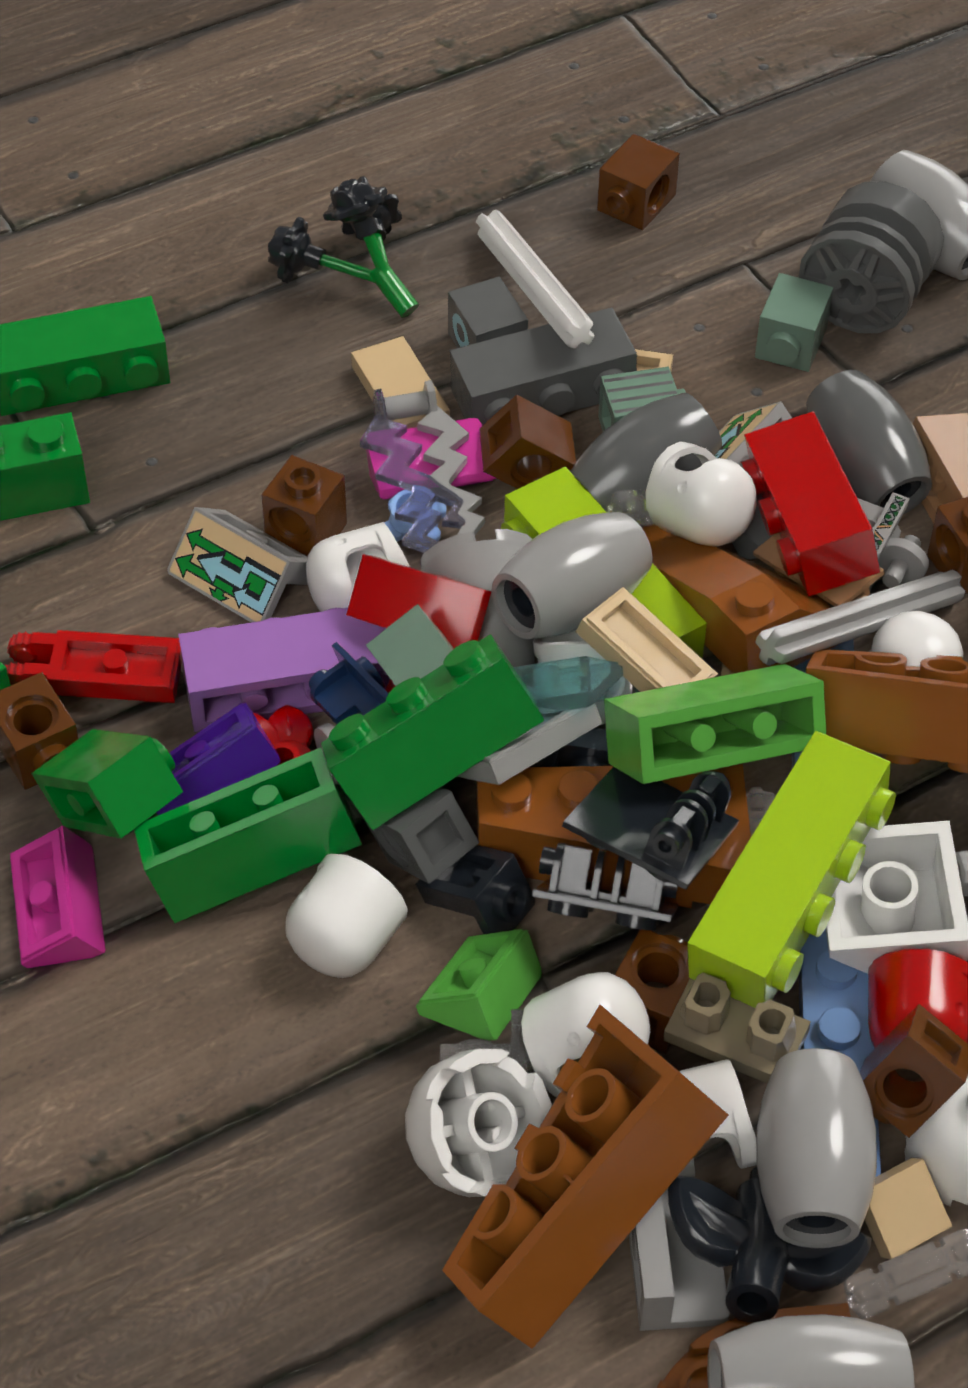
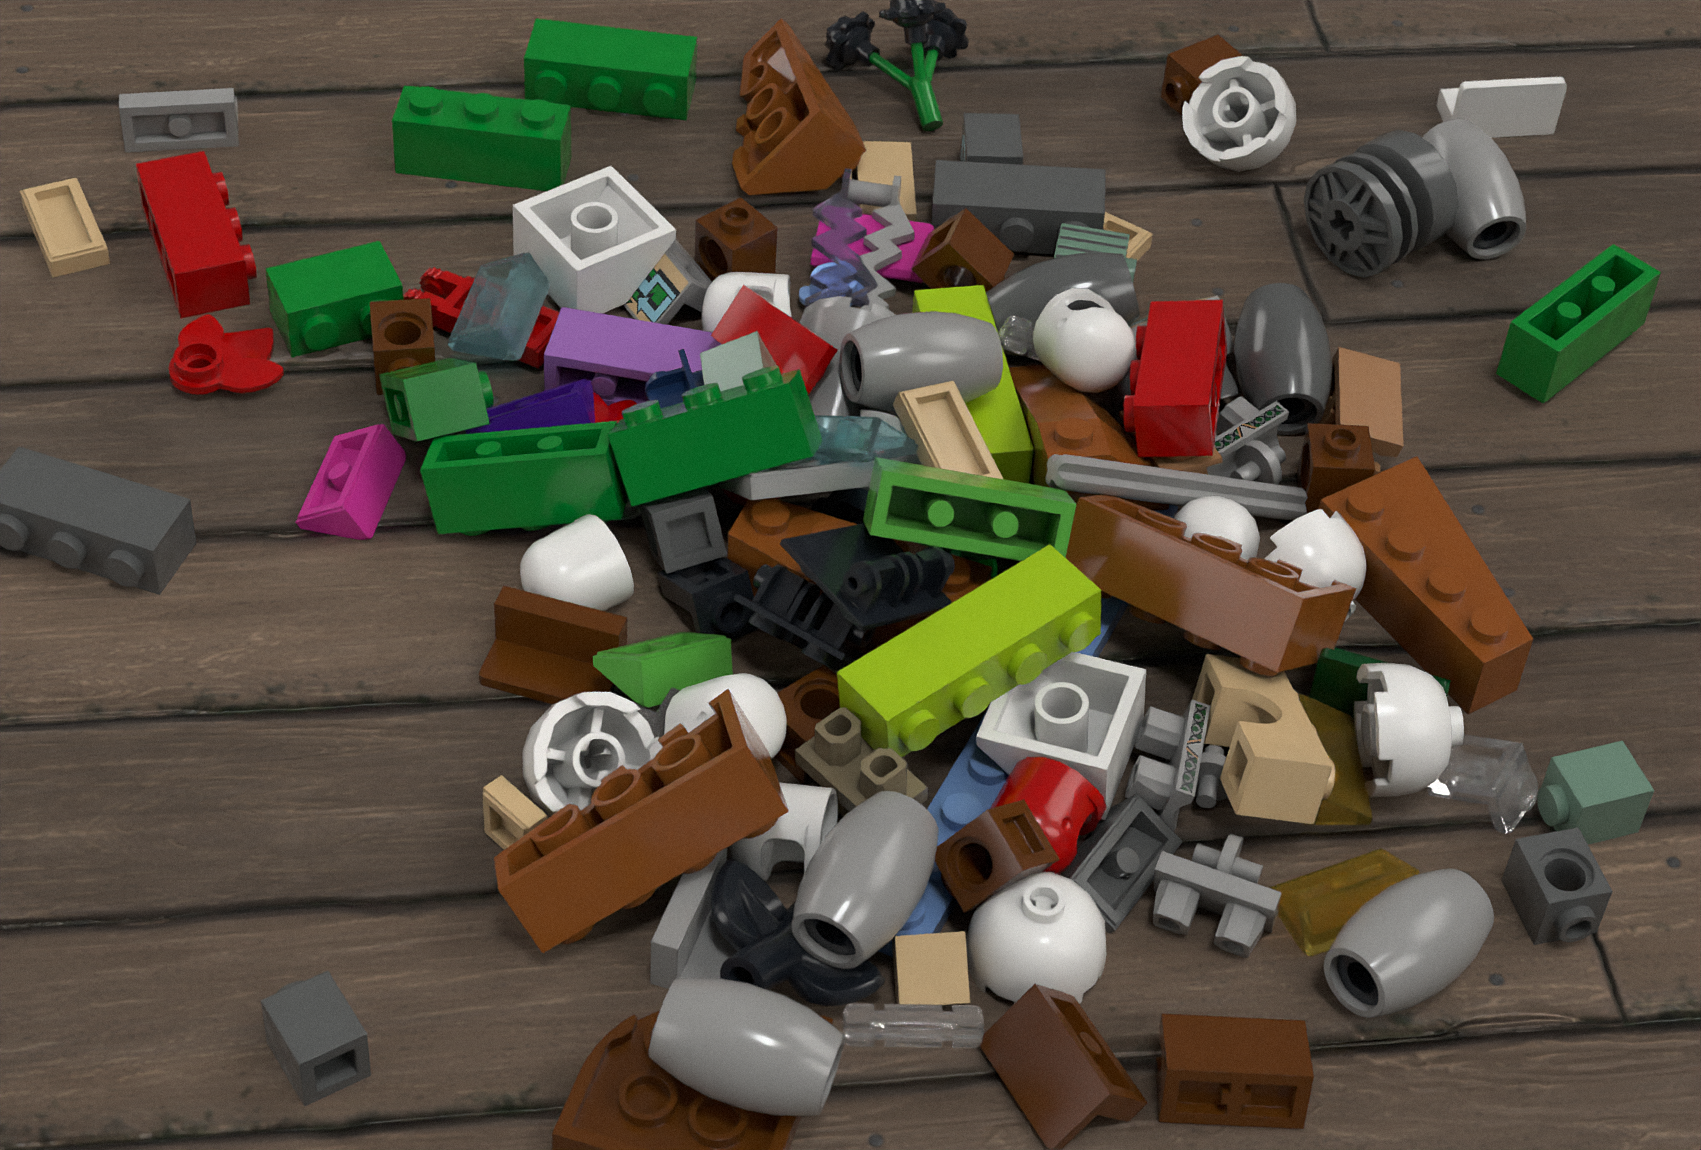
camera: 20 degrees right, 5 degrees down
(113, 656) = (501, 308): none -> clear light blue slope
(164, 552) = (592, 239): none -> white slope
(277, 352) = (793, 121): none -> dark orange wedge
(360, 1010) = (549, 646): none -> reddish brown panel
(428, 1215) = (508, 812): none -> tan tile
(535, 279) = (1050, 127): white axle -> none
(698, 208) = (1240, 114): none -> white cylinder
(793, 322) = (1281, 239): sand green brick -> none
(906, 123) = (1506, 105): none -> white panel

